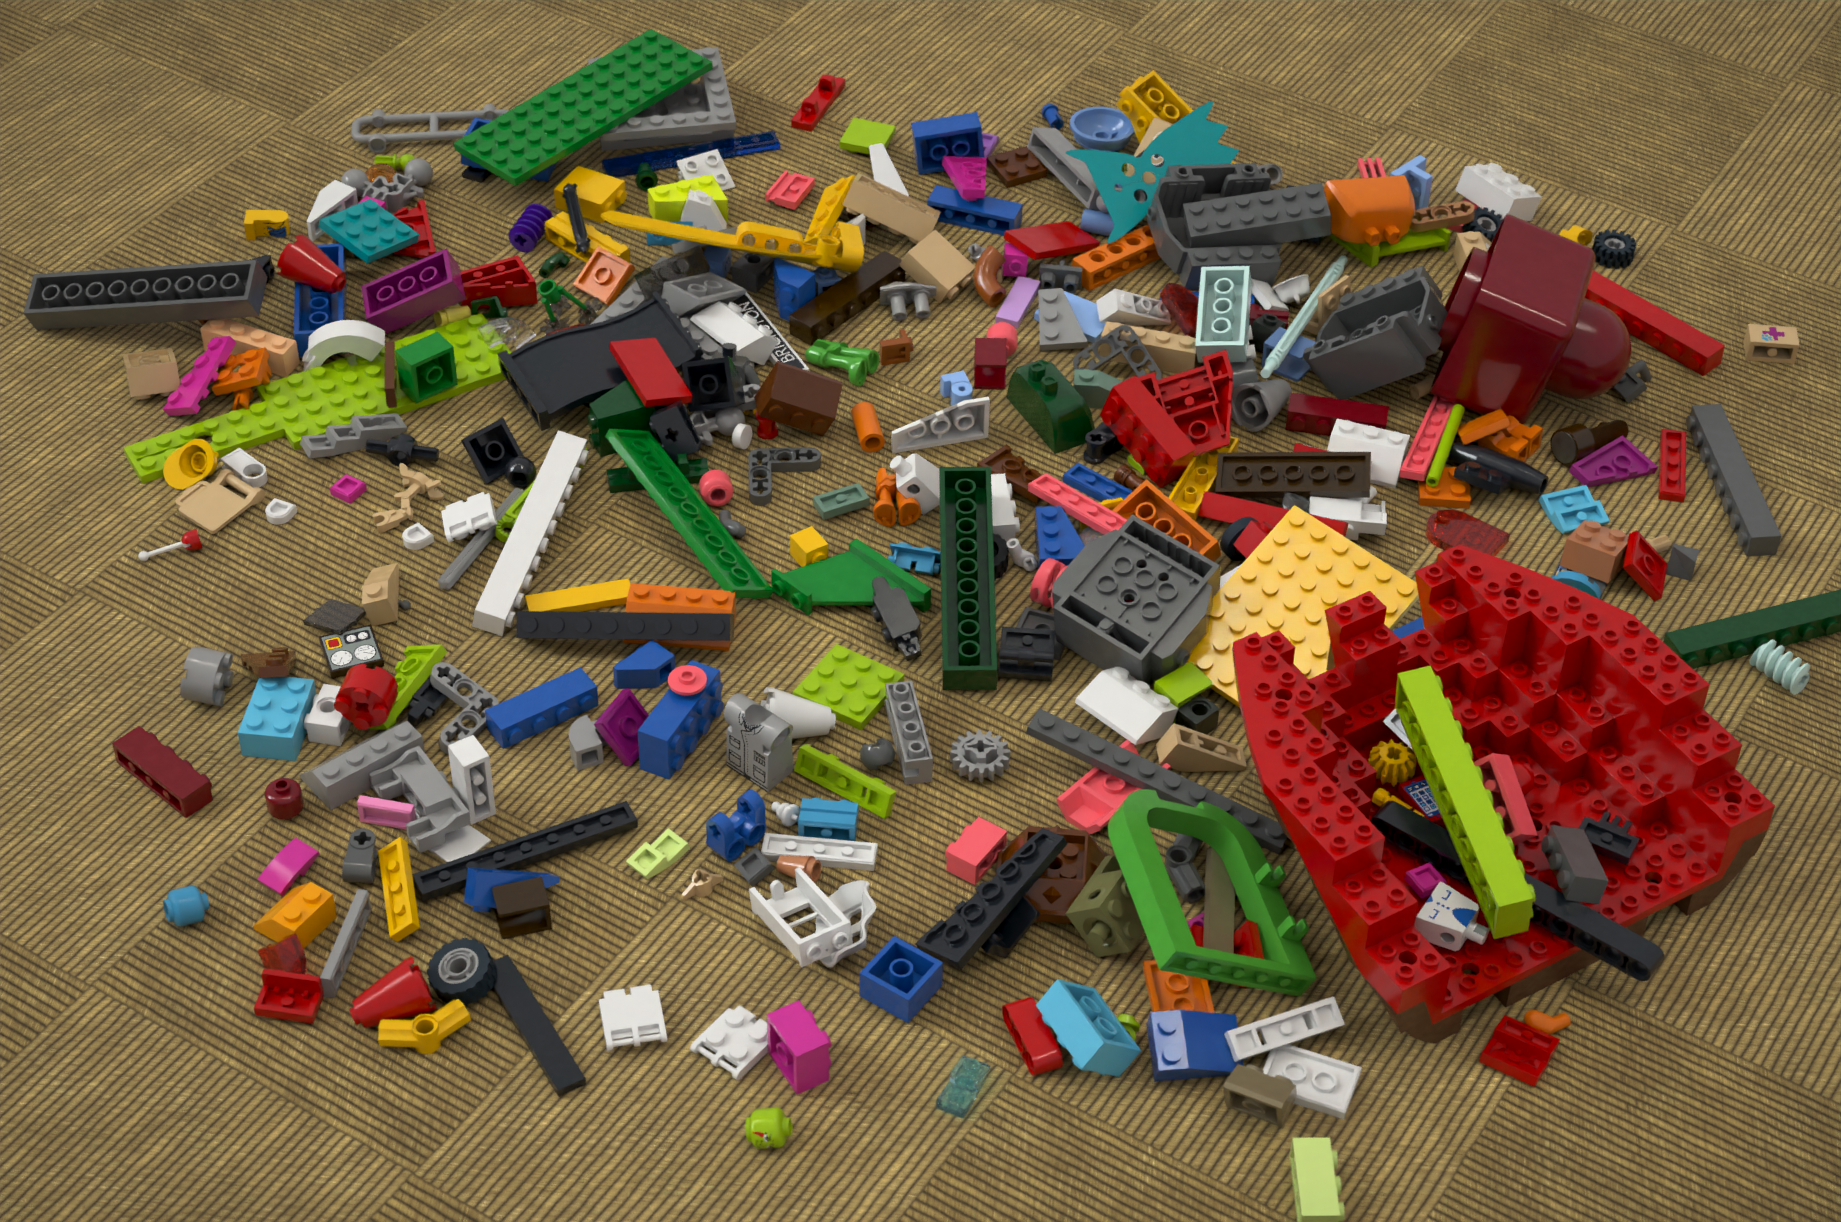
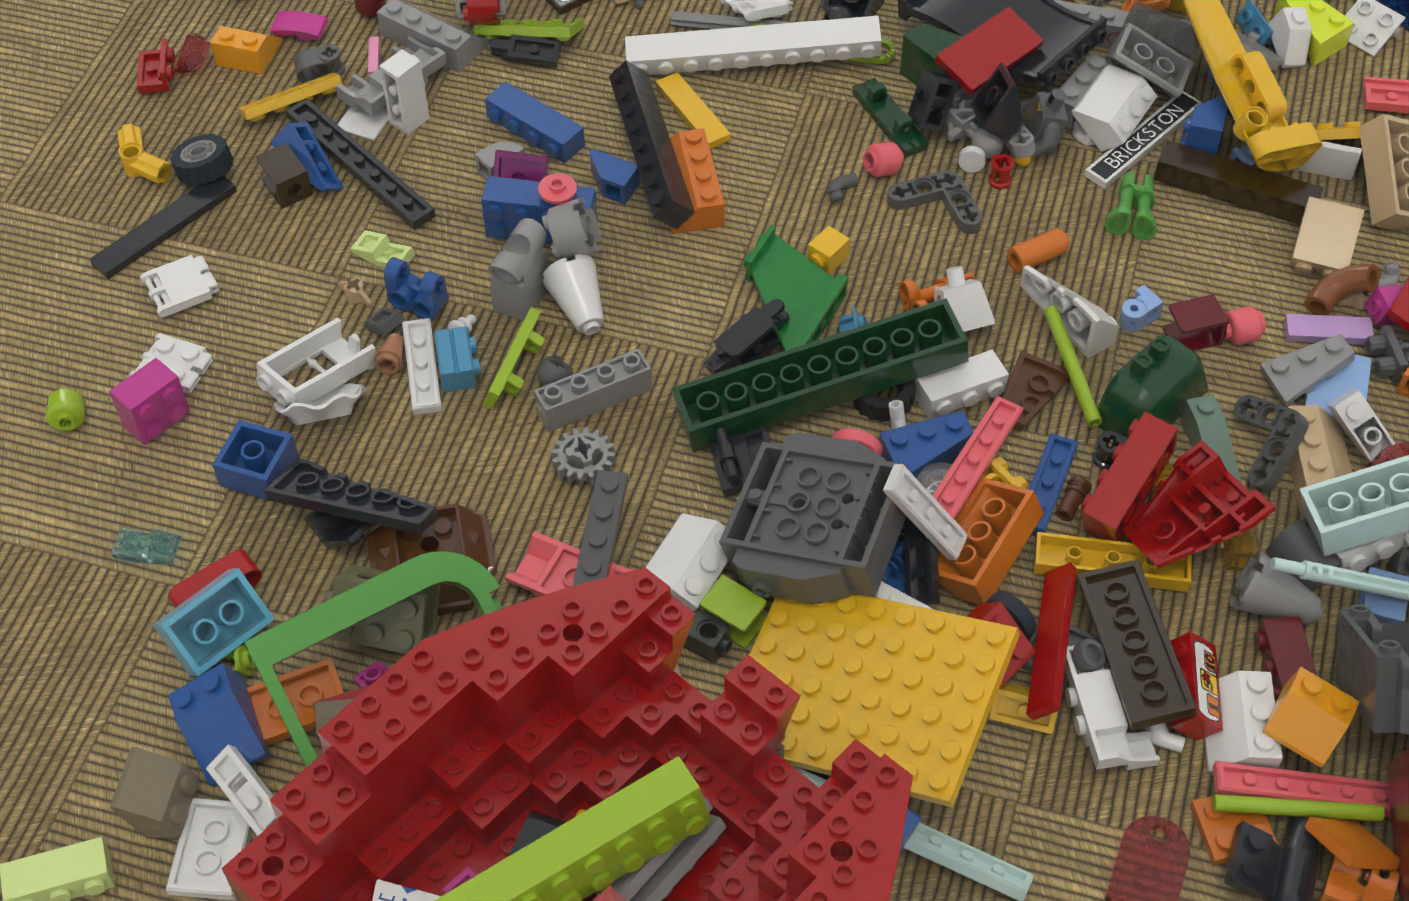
camera: 75 degrees right, 10 degrees up
(345, 943) = (221, 83): light grey tile -> none
(394, 997) = (165, 127): red cone -> none
(470, 704) = (523, 76): light grey beam -> none
(689, 513) = (823, 145): green plate -> none
(738, 676) = (572, 229): none -> light grey brick
(799, 398) = (1023, 175): reddish brown slope -> none
(841, 501) = (914, 258): sand green plate -> none
(848, 685) = (656, 326): lime plate -> none
(896, 350) = (1175, 244): dark orange bracket -> none
(902, 293) = (1264, 220): light grey connector -> none
(975, 850) = (449, 482): coral brick -> none
(1004, 440) = (1073, 366): none -> lime piece
(1158, 522) = (925, 512): none -> white tile
(1386, 405) = (1310, 716): none -> light orange slope

